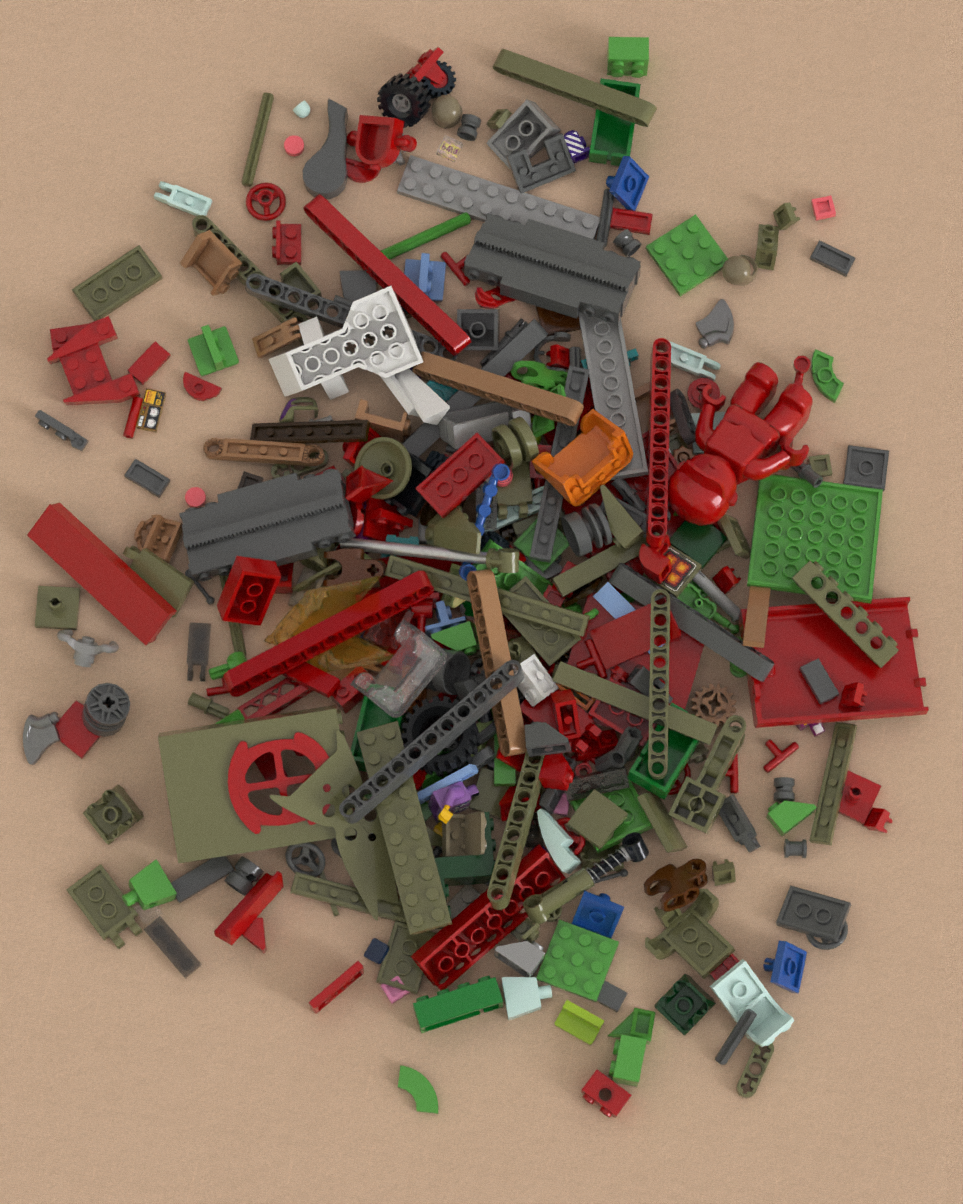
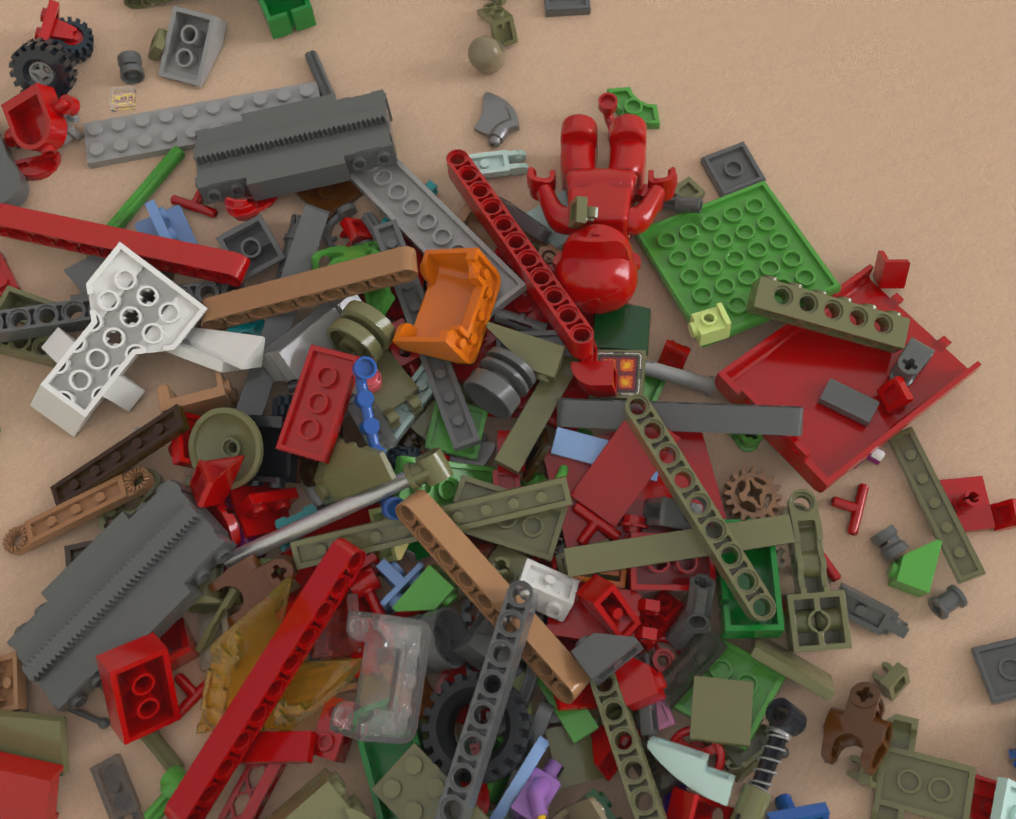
camera: 30 degrees left, 5 degrees down
(195, 497) = (22, 609): coral piece -> none
(275, 614) = (193, 693): none -> red piece
(276, 338) = (28, 376): medium nougat hinge -> none
(288, 412) = (86, 450): olive piece -> none
(446, 111) = (98, 64): dark tan helmet -> none
(558, 165) = (242, 57): dark grey plate -> none
(576, 146) = (251, 32): dark purple brick -> none
(627, 243) = (356, 87): dark grey wheel -> none
(628, 183) = (324, 33): blue tile -> none
(633, 220) = (349, 70): red tile -> none
(687, 255) = (425, 72): bright green plate -> none
(692, 597) = (671, 393): bright green piece -> none
(698, 385) = (515, 188): red gear -> none
(712, 443) = (581, 213): none -> olive tile
(735, 537) = (657, 306): olive tile -> none
(756, 617) = (745, 371): medium nougat tile -> none
(760, 577) = (710, 325): none -> yellowish green brick
(882, 680) = (911, 361): none -> dark grey piece
(920, 612) = (890, 272): none -> red panel

